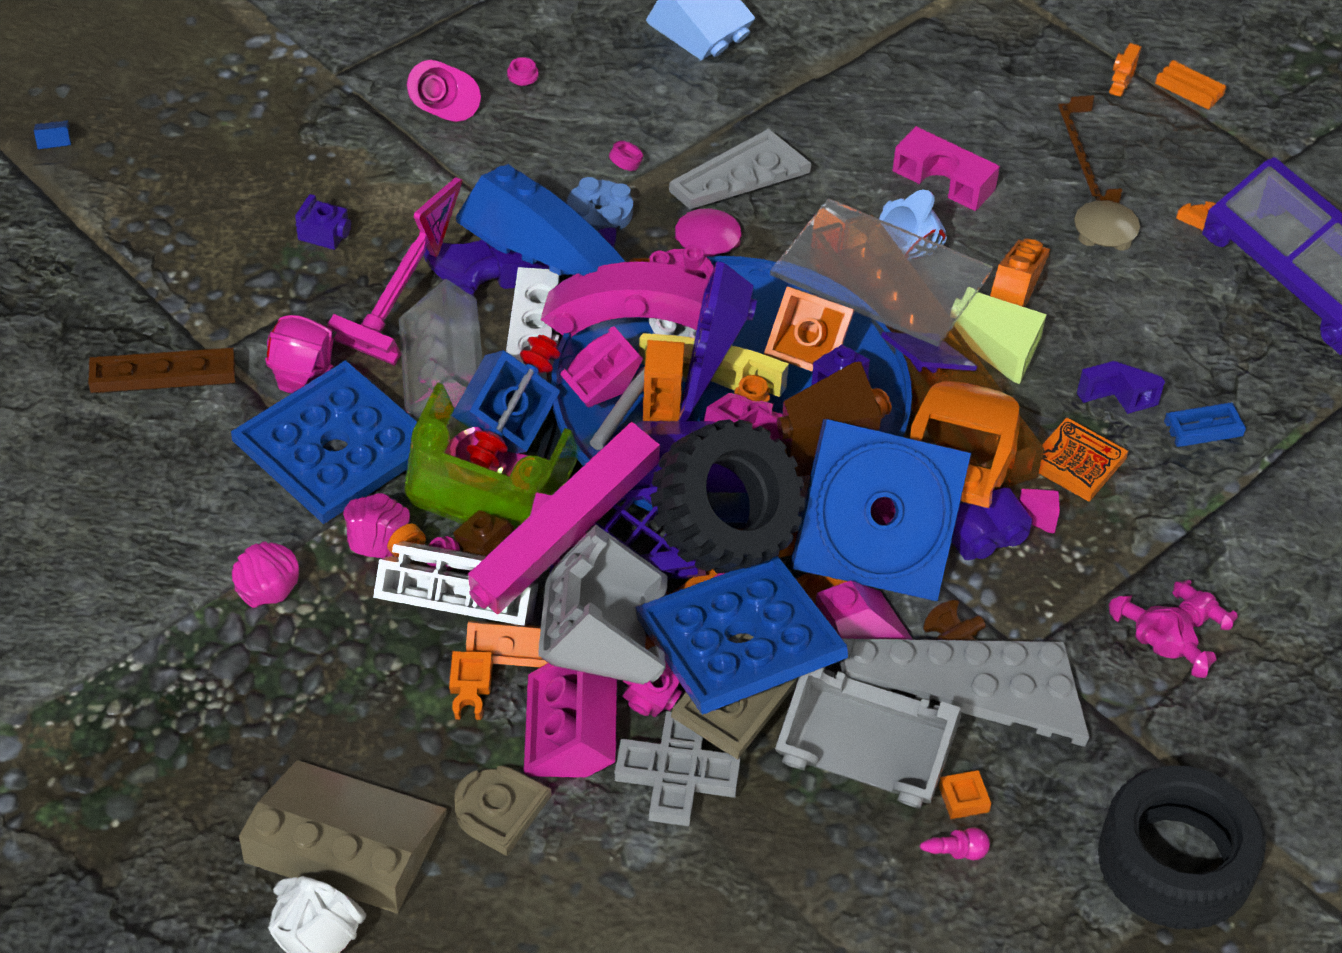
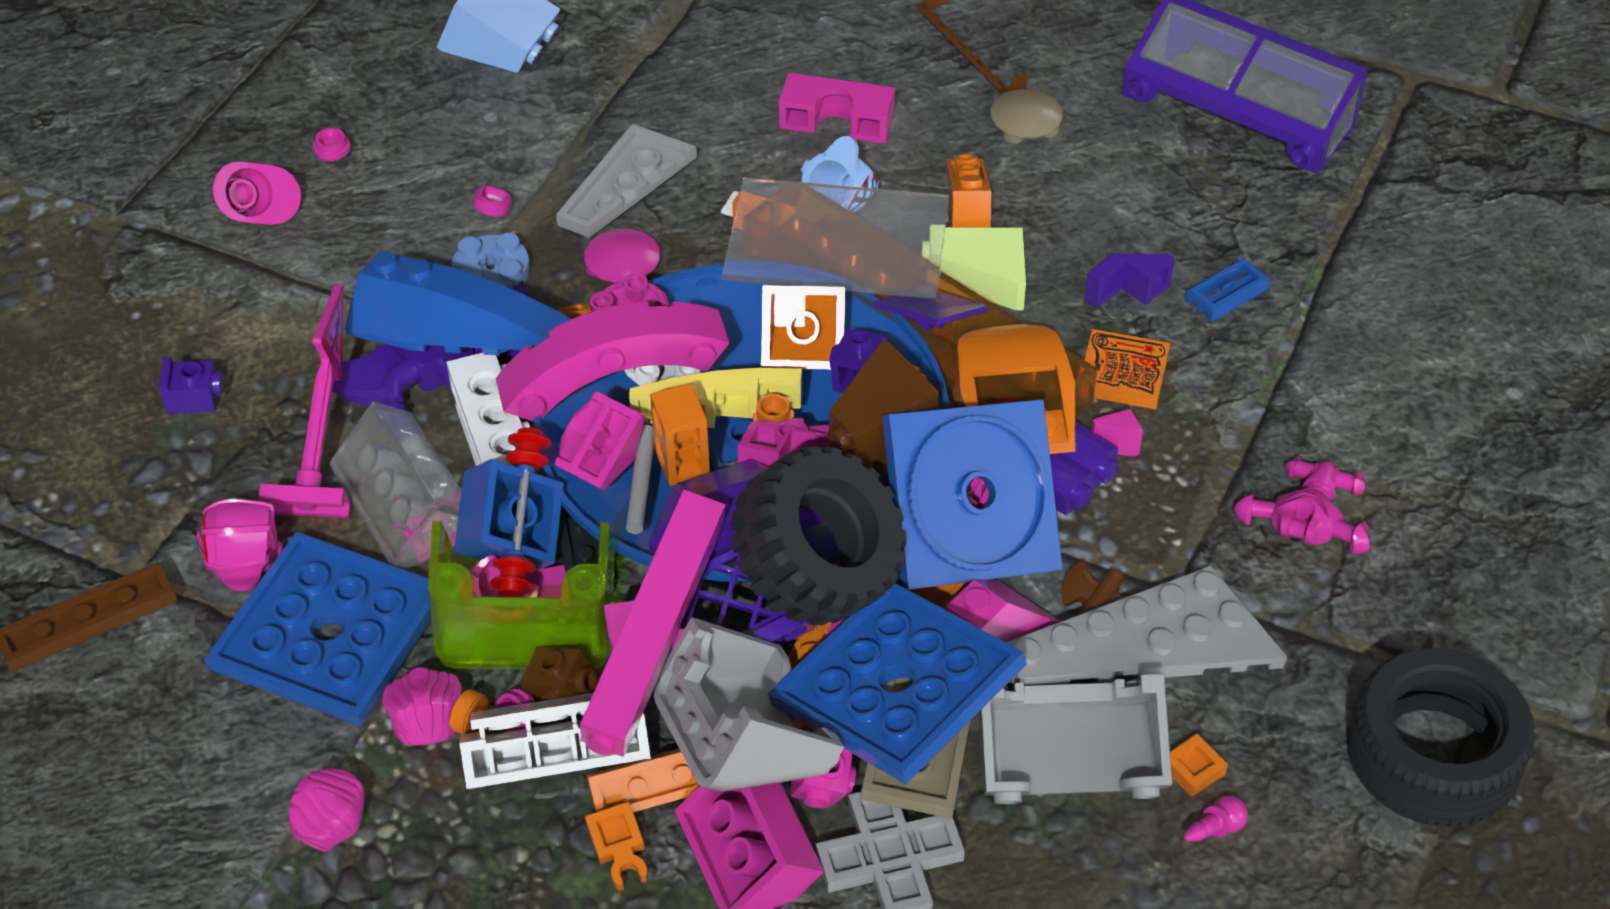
camera: 20 degrees left, 0 degrees up
(721, 317) = (715, 348): dark purple wedge -> none
(1195, 214) = (1110, 75): orange tile -> none

